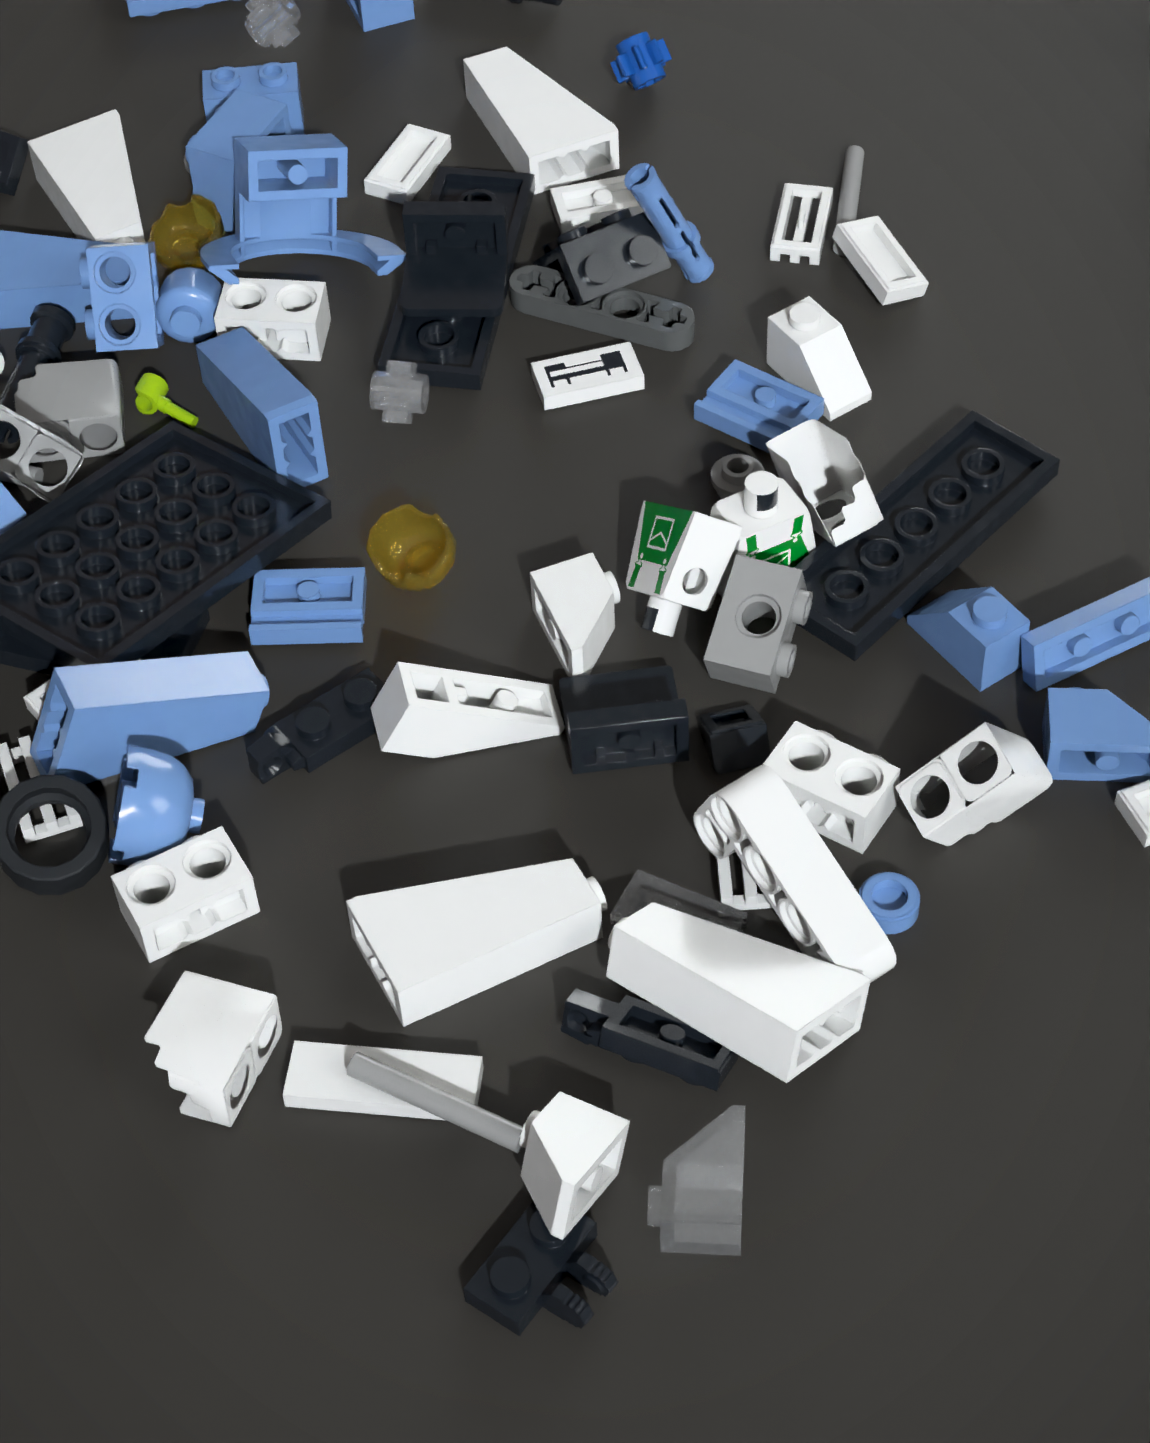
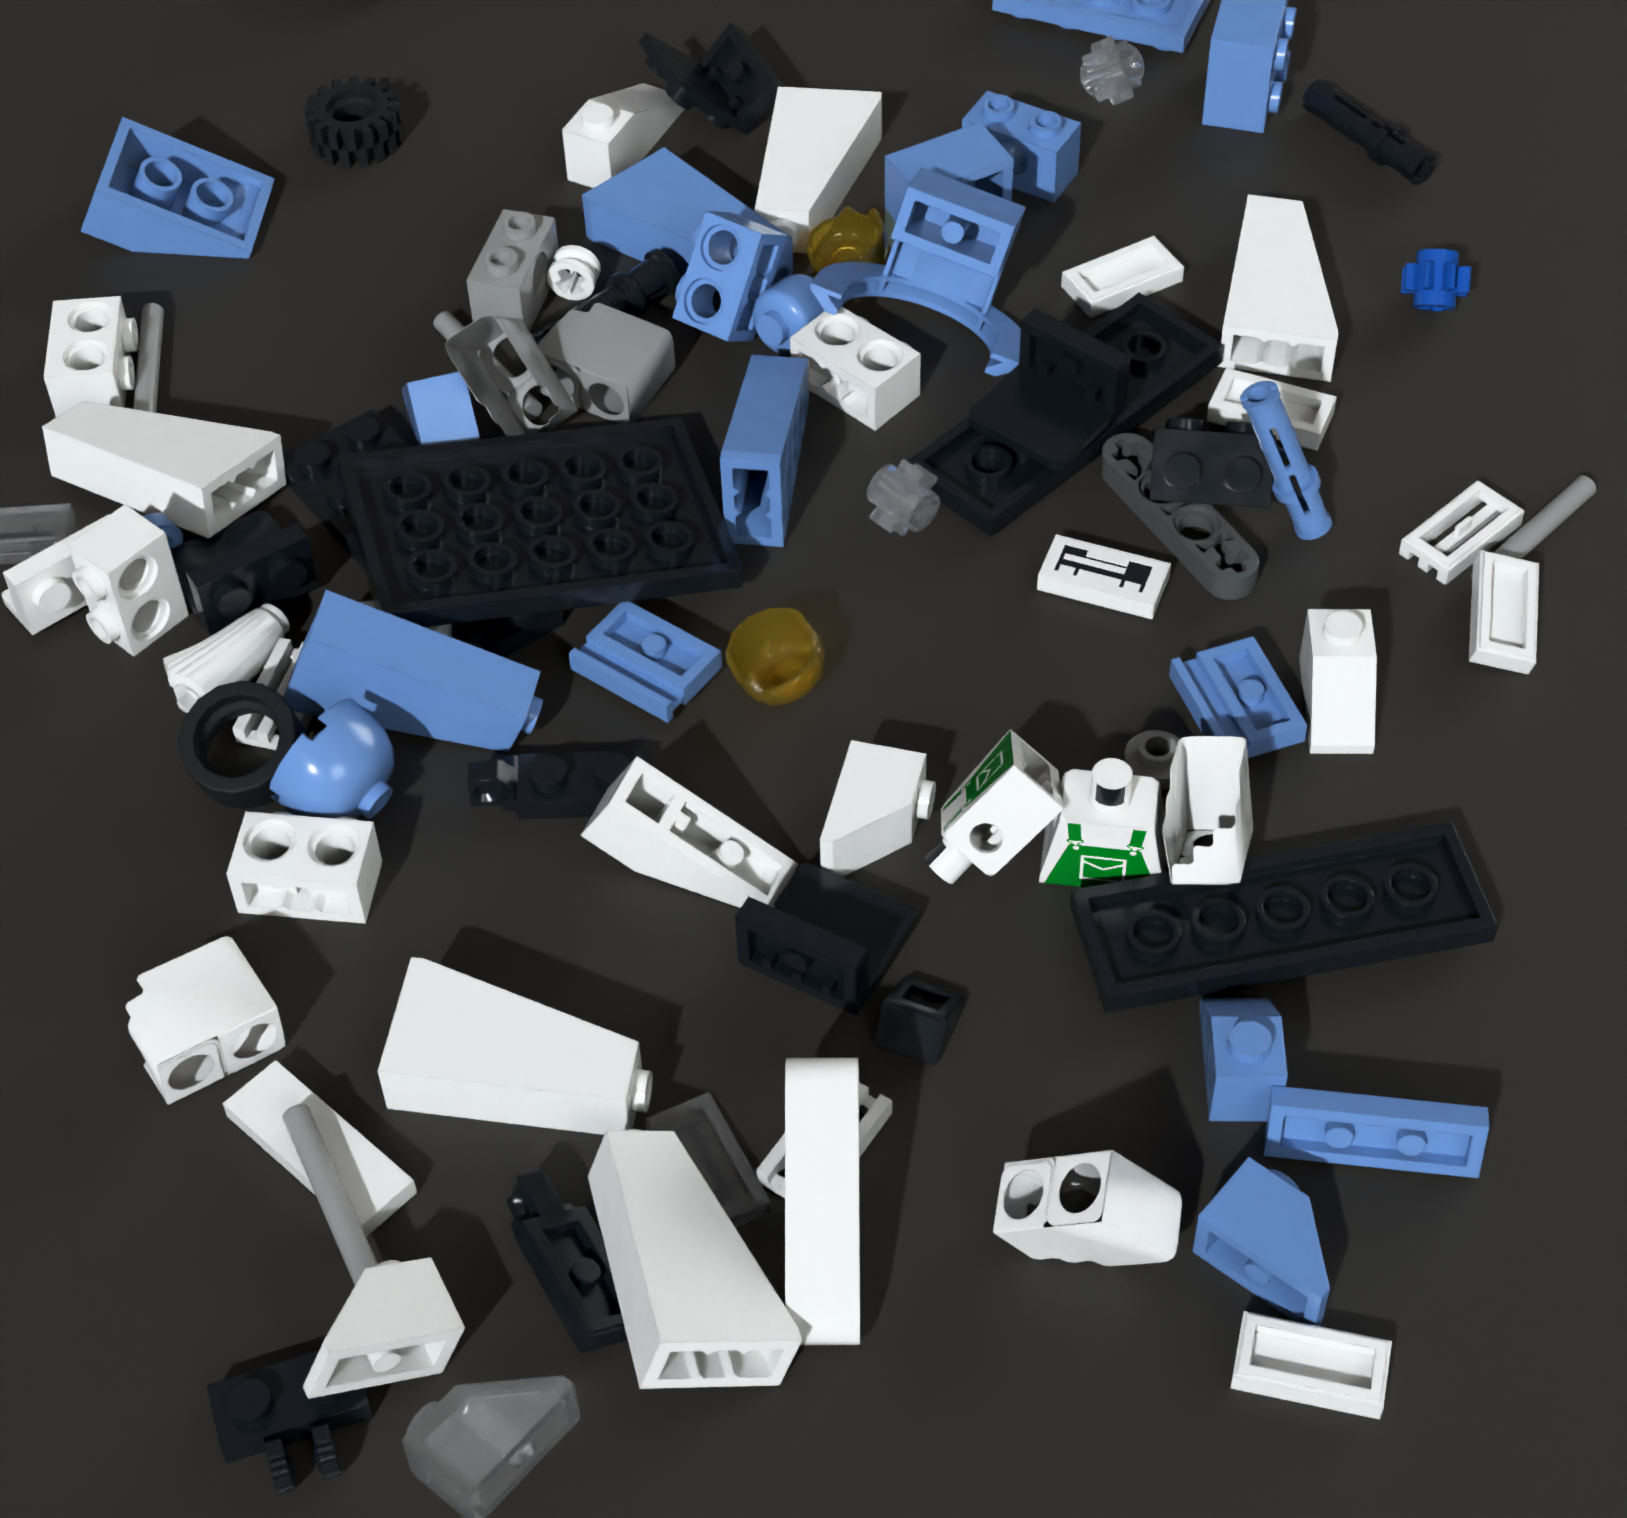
camera: 35 degrees right, 0 degrees up
(151, 397) = (691, 384): lime hand -> none
(753, 592) = (1025, 883): light grey brick -> none
(836, 785) = (944, 1125): white brick -> none
(891, 900) = (916, 1277): medium blue tile -> none

